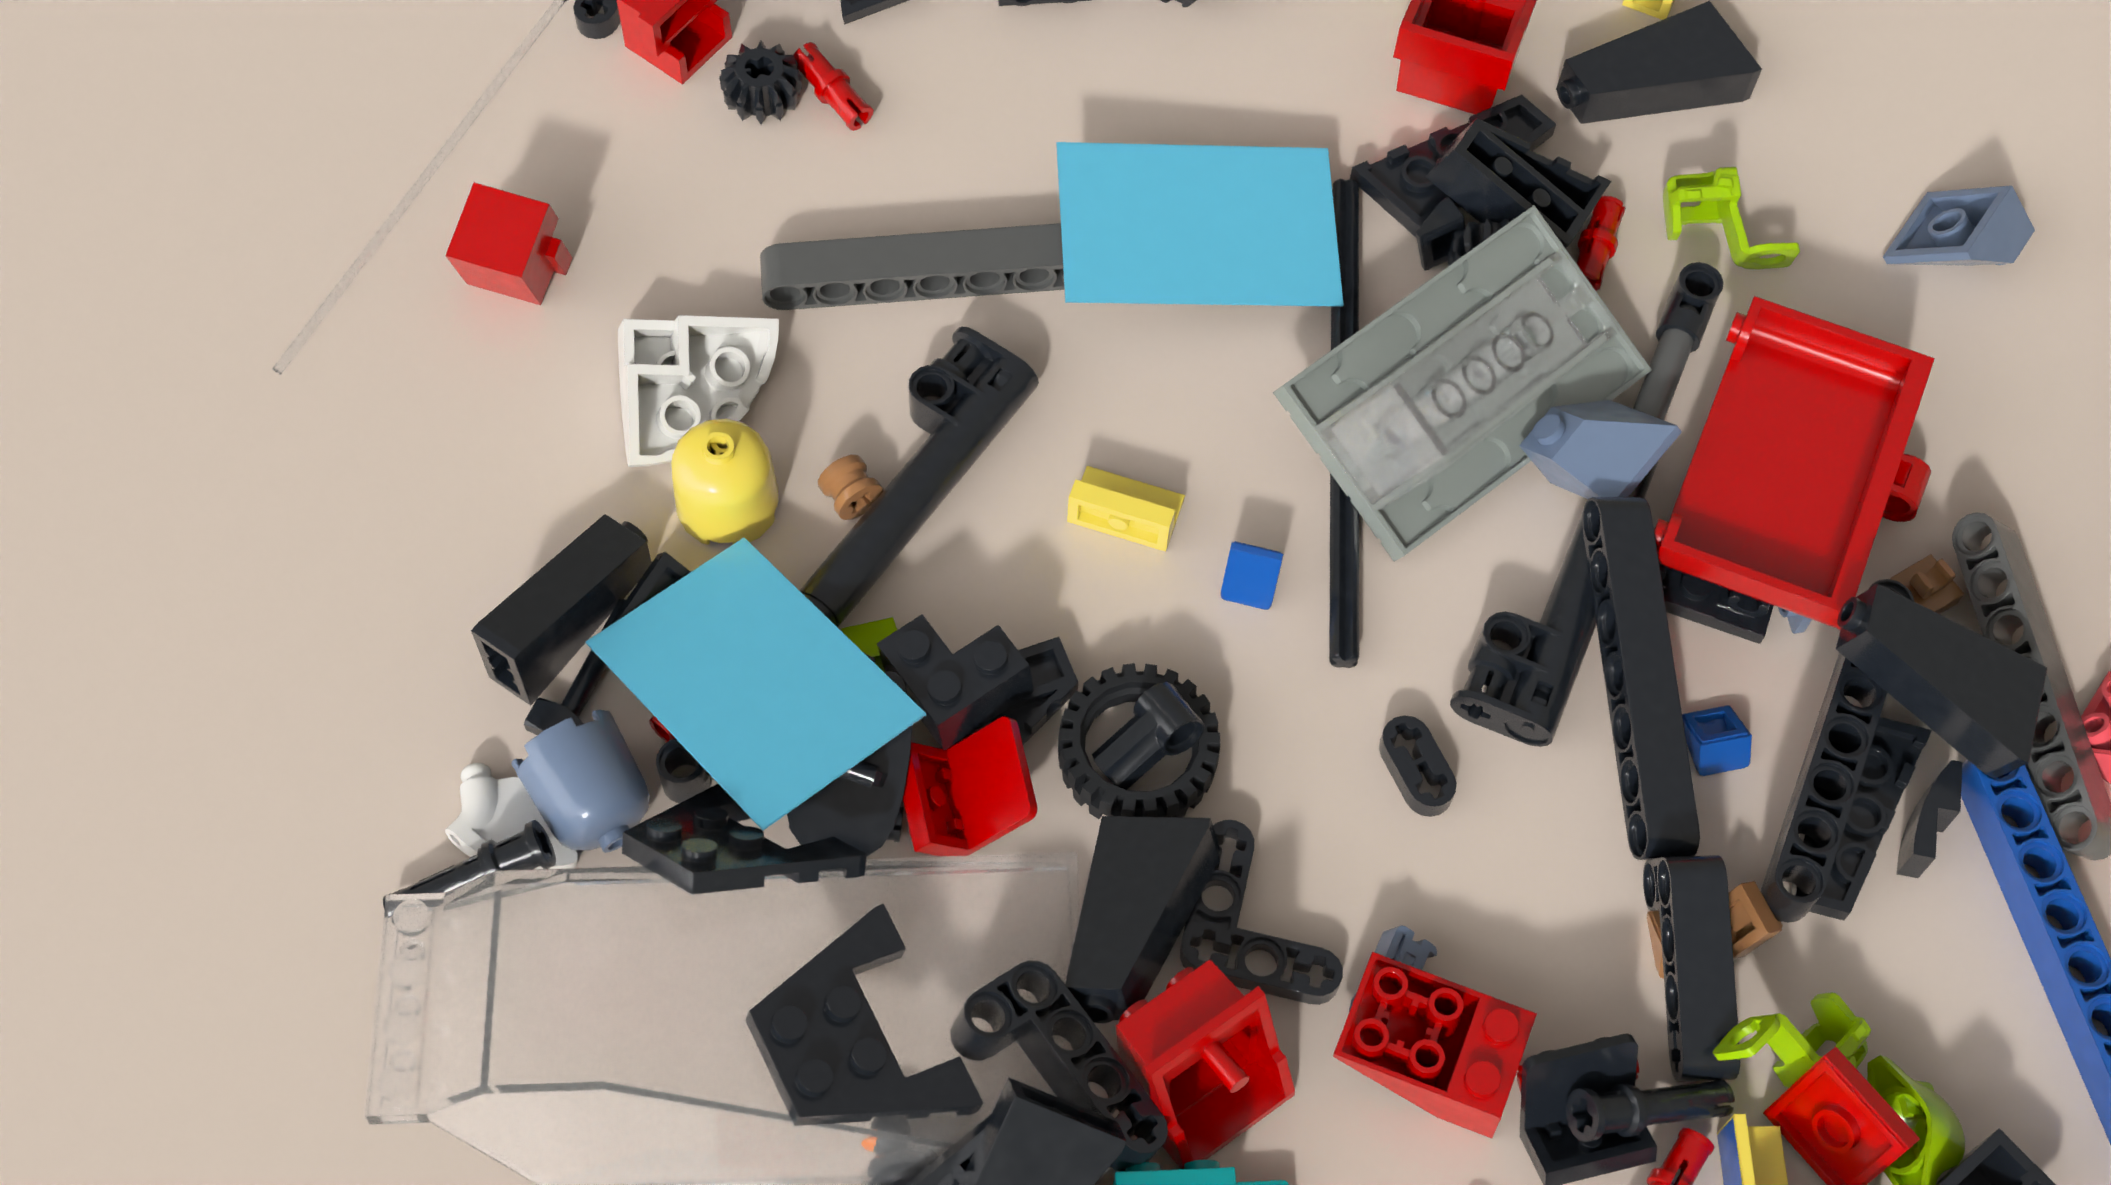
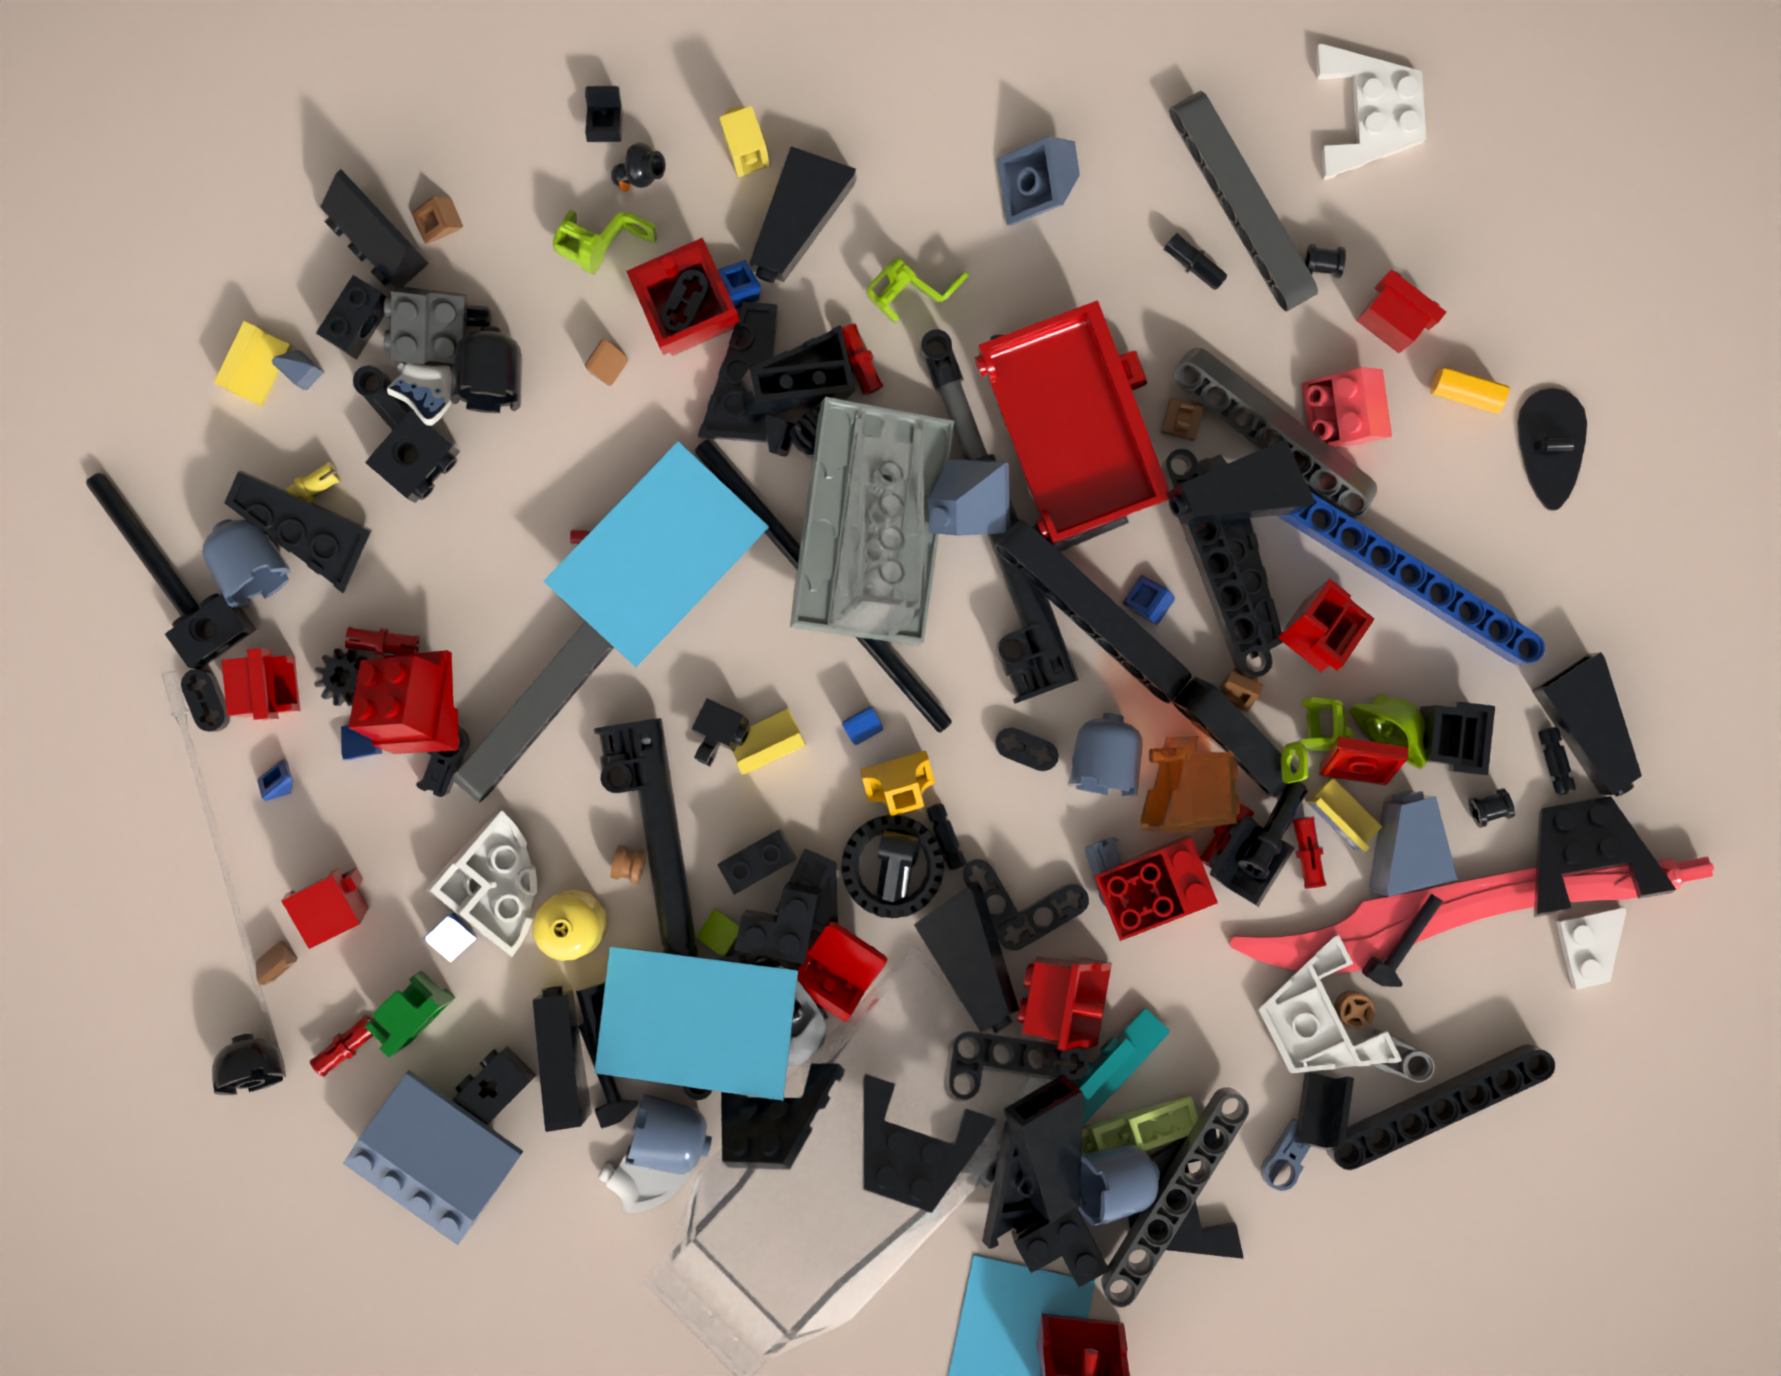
camera: 45 degrees left, 25 degrees up
(249, 324) = (248, 1065): none -> black cylinder
(323, 574) = (433, 1157): none -> sand blue slope
(364, 399) = (342, 1047): none -> red pin
(390, 269) = (274, 963): none -> medium nougat slope
(459, 571) = (511, 1077): none -> black brick
(460, 420) = (407, 1013): none -> green panel
(519, 852) = (665, 1213): black pin -> none
(588, 118) = (276, 781): none -> blue slope
(589, 394) = (450, 937): none -> slope
(708, 153) = (356, 745): none -> blue slope
(749, 240) = (443, 768): none -> black piece
(795, 136) = (407, 703): none -> red piece
(982, 595) = (757, 861): none -> black brick
(1089, 438) = (719, 728): none -> black brick
(1231, 772) = (946, 836): none -> black axle
(1236, 662) = (899, 782): none -> yellow brick
(1321, 38) = (606, 362): none -> medium nougat slope
(1464, 21) = (678, 298): none -> black beam
(1507, 844) = (1107, 757): none -> sand blue cylinder
(1532, 78) = (740, 283): none -> blue slope
(1588, 965) = (1190, 788): none -> clear orange piece
(1921, 928) = (1326, 627): none -> red plate
(1931, 815) = (1278, 542): black slope -> none
(2079, 449) = (1195, 261): none -> black axle

